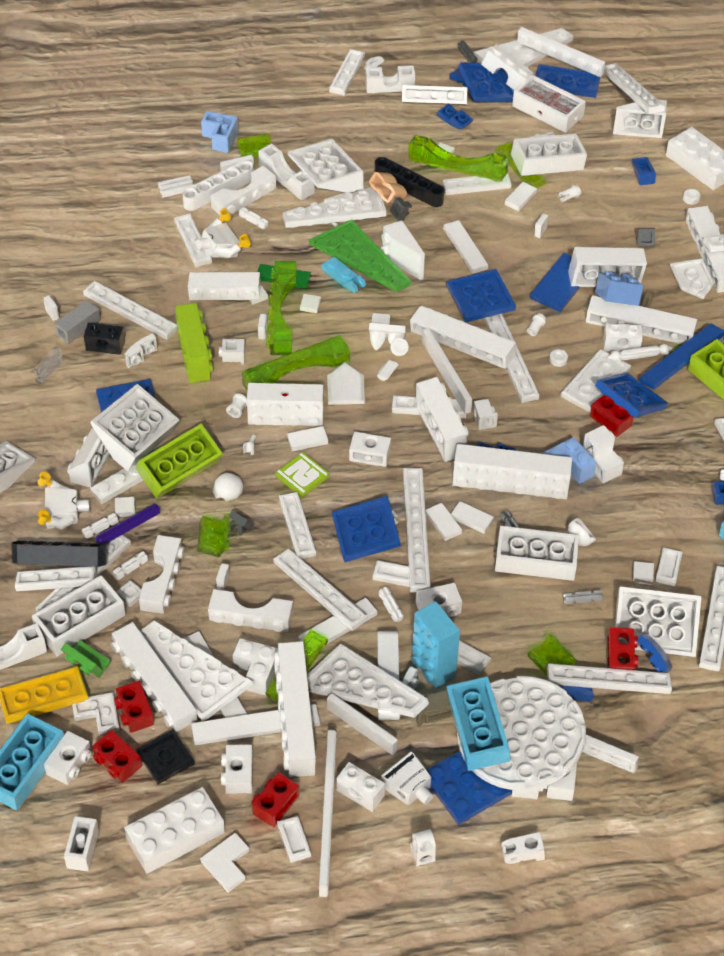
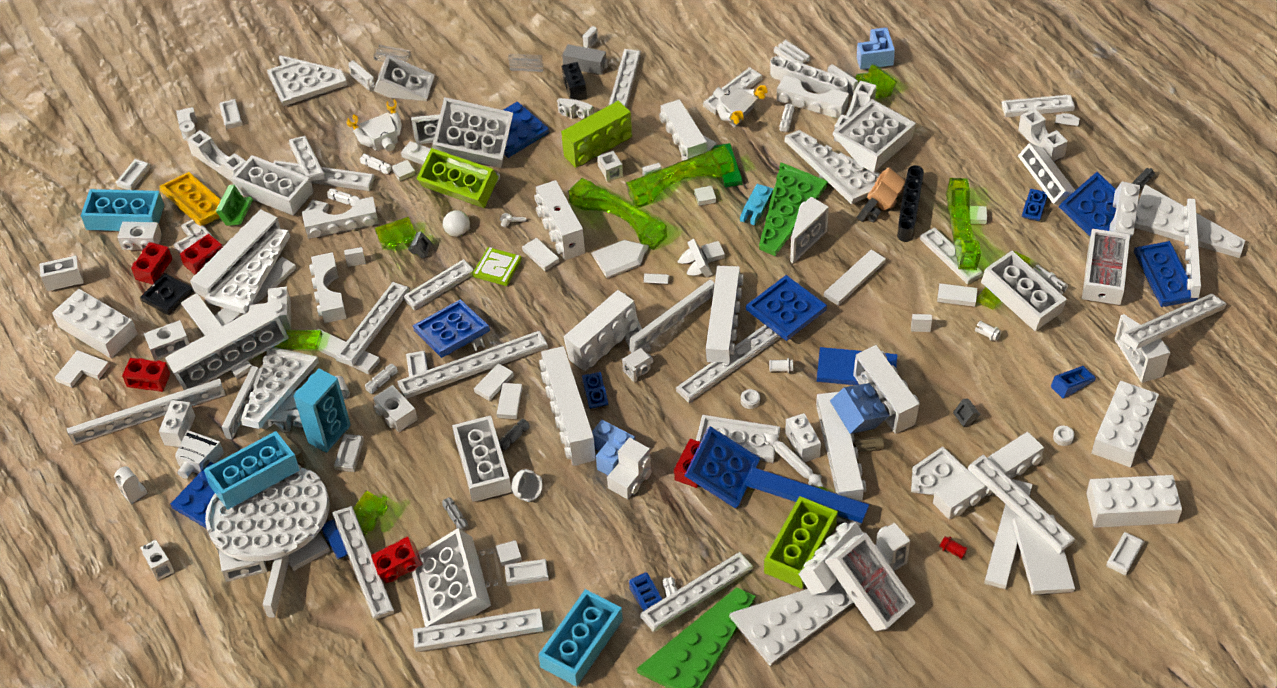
camera: 70 degrees right, 0 degrees up
(58, 553) = (326, 148): black beam -> none
(128, 524) = (380, 177): dark purple axle -> none
(294, 839) = (118, 401): white tile -> none
(370, 449) = (548, 299): white brick -> none
(399, 347) = (686, 274): white tile -> none
(659, 658) = (407, 589): blue slope -> none

